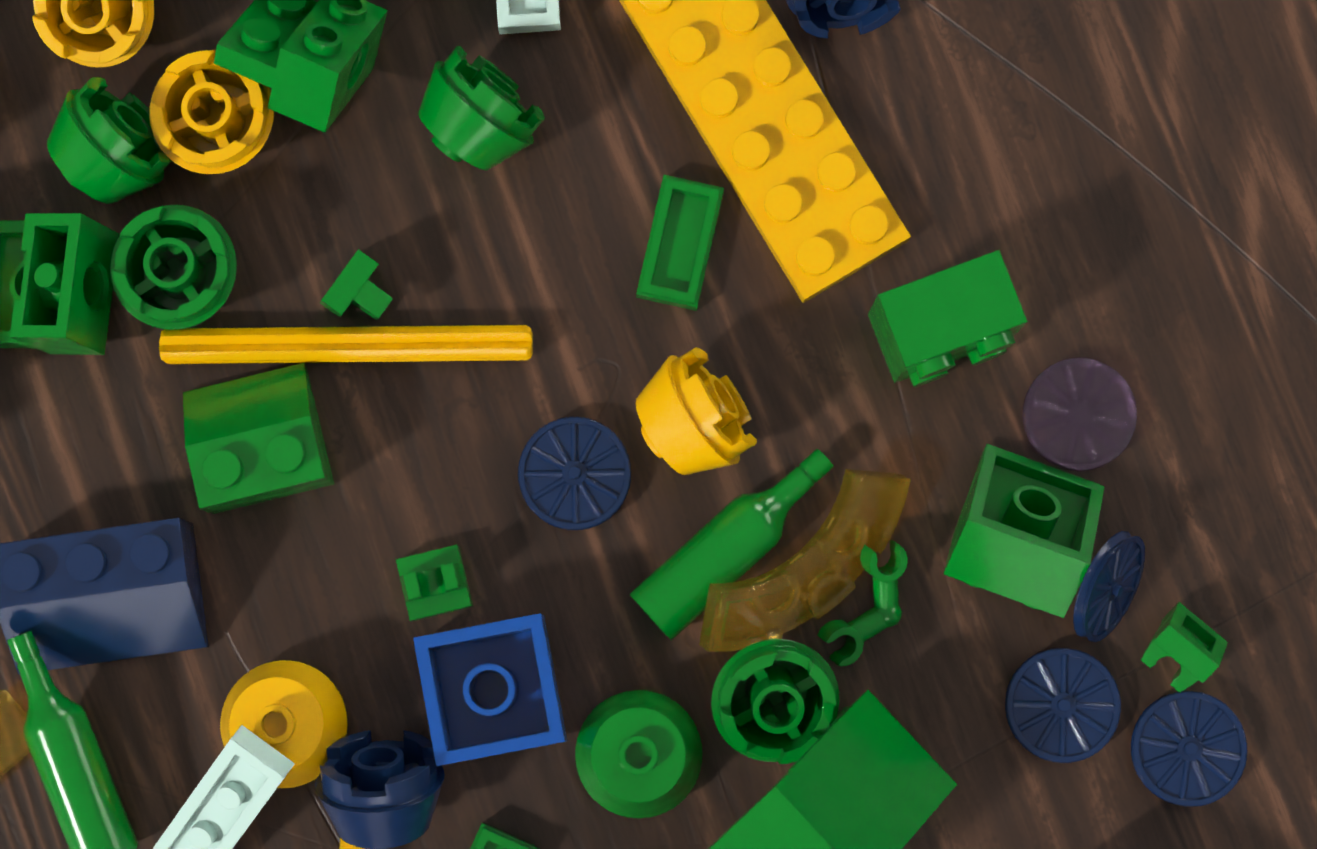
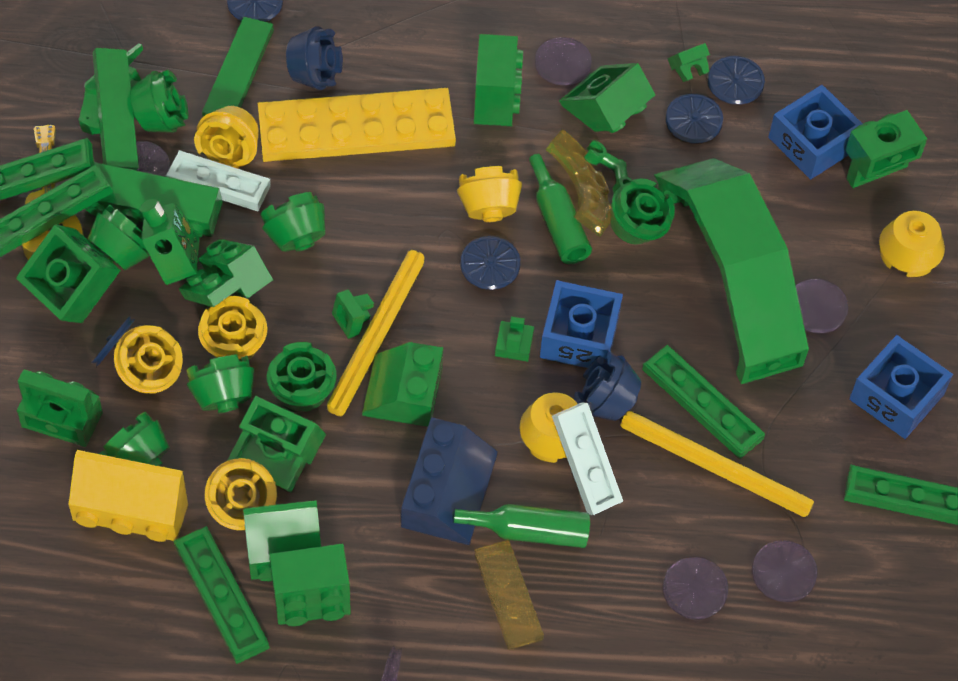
camera: 70 degrees left, 25 degrees down
(638, 754) = (643, 282): green cone -> none
(680, 242) = (400, 179): green tile -> none
(1109, 586) = (649, 71): dark blue wheel -> none

